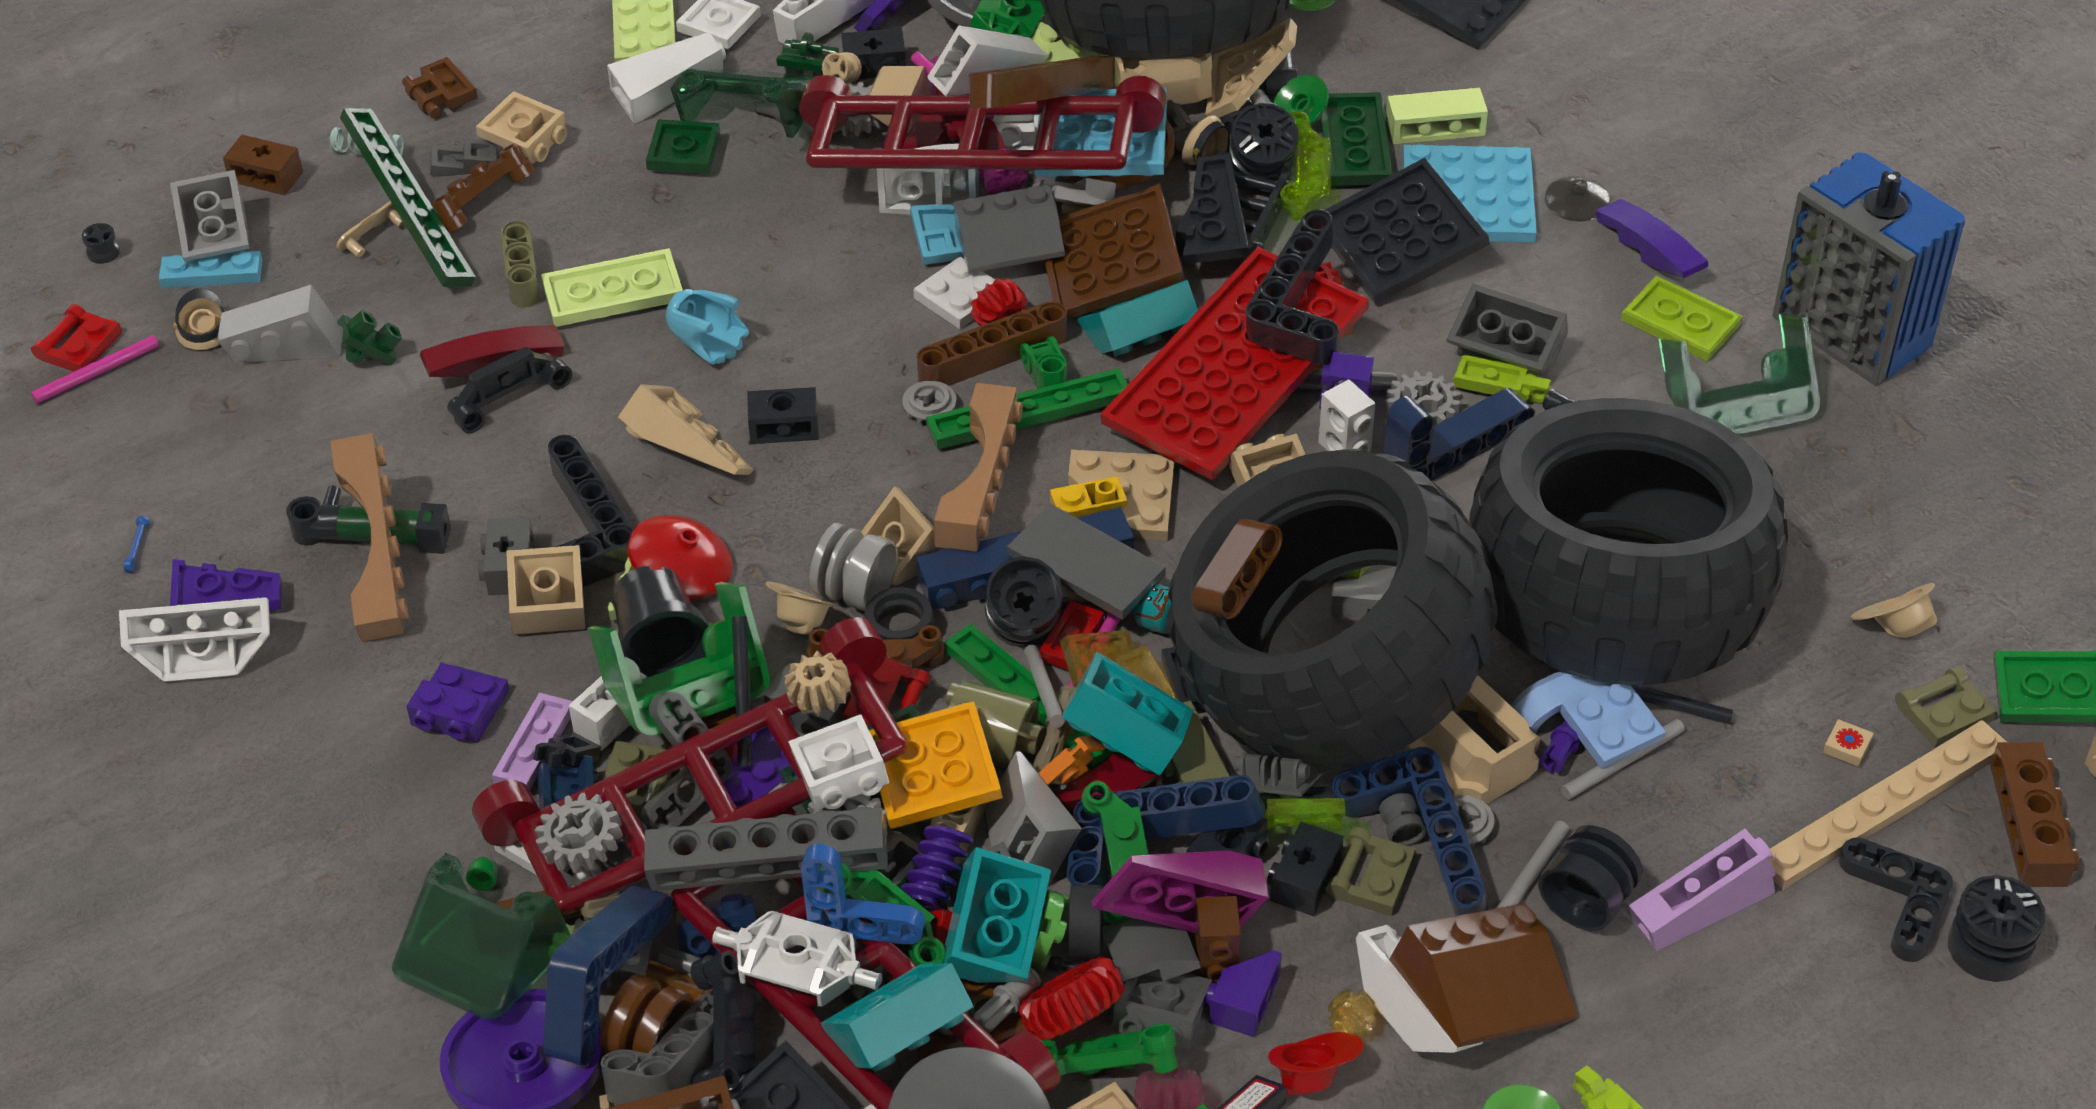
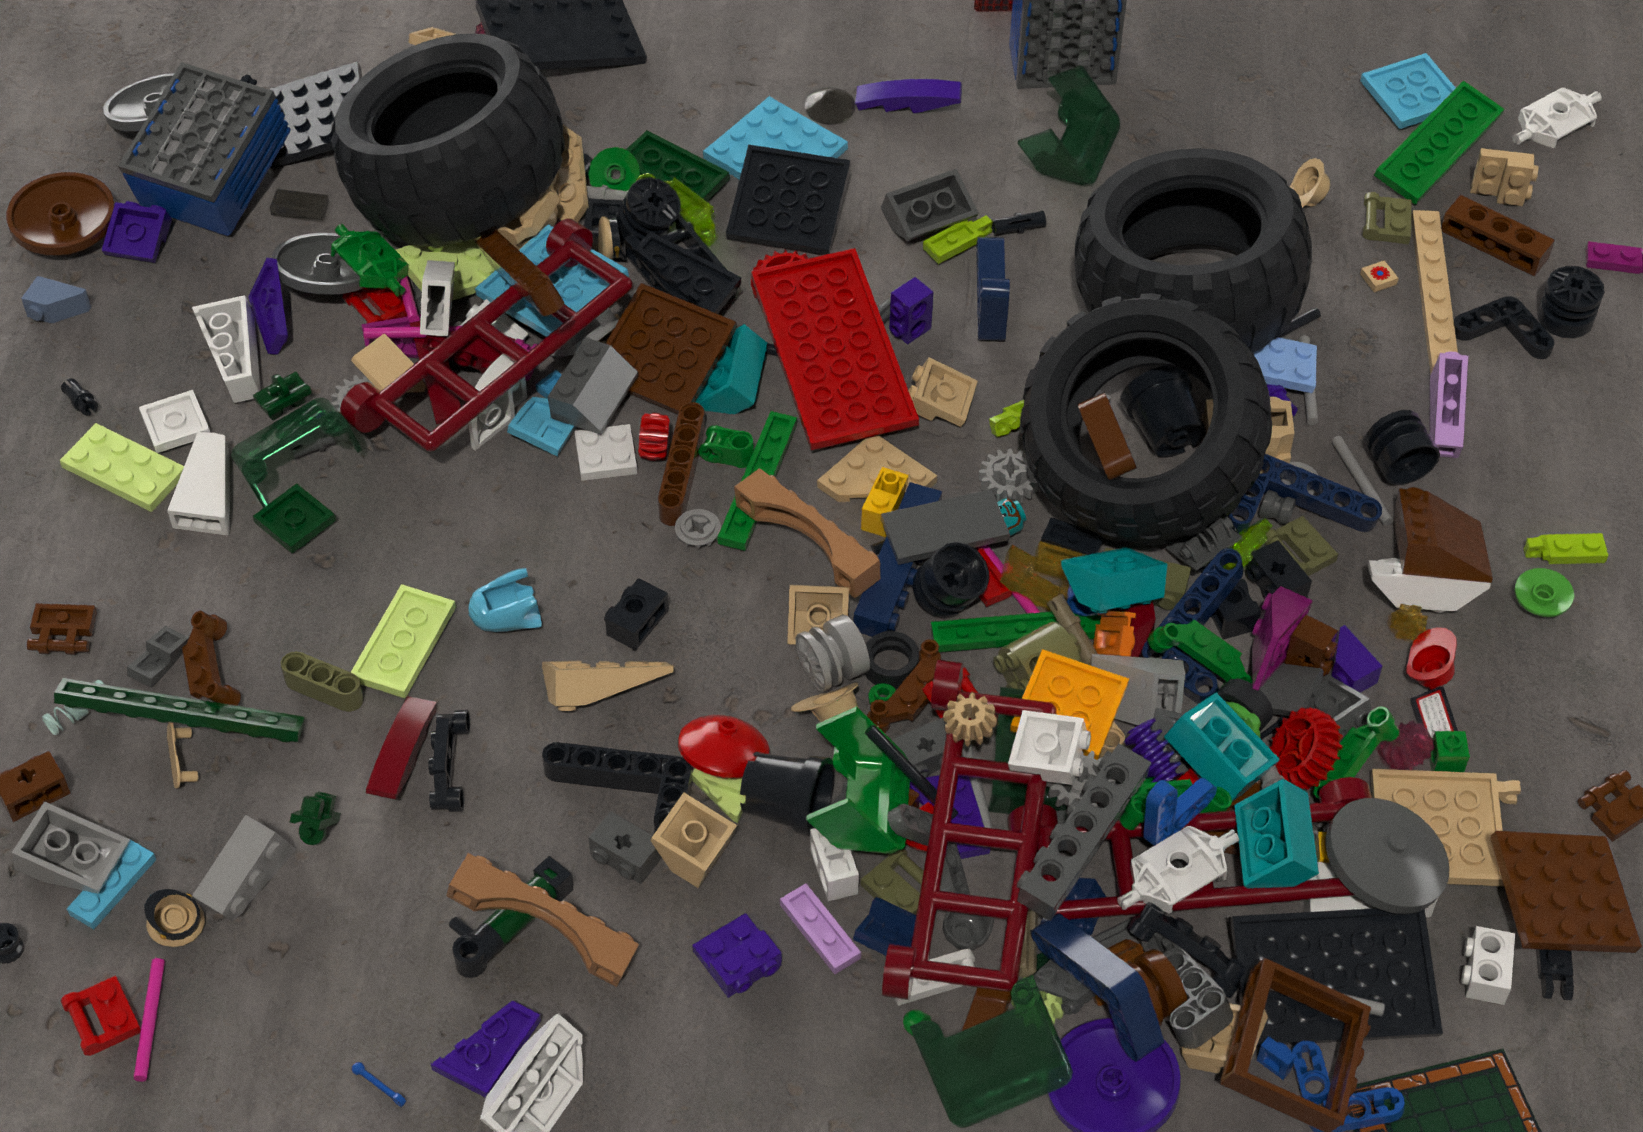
camera: 55 degrees left, 5 degrees up
(527, 124) = (174, 598): tan plate -> none
(566, 750) = (850, 910): black plate -> none
(579, 832) = (957, 934): light grey gear -> none
(834, 66) = (323, 386): tan wheel -> none
(875, 49) = (317, 356): black brick -> none
(1044, 686) = (1032, 612): light grey bar -> none
(1272, 311) = (827, 304): black beam -> none
(1346, 418) = (939, 328): white brick -> none
(1429, 393) = (948, 283): light grey gear -> none
(1436, 115) = (696, 116): yellowish green brick -> none
(1679, 314) = (982, 127): lime tile -> none

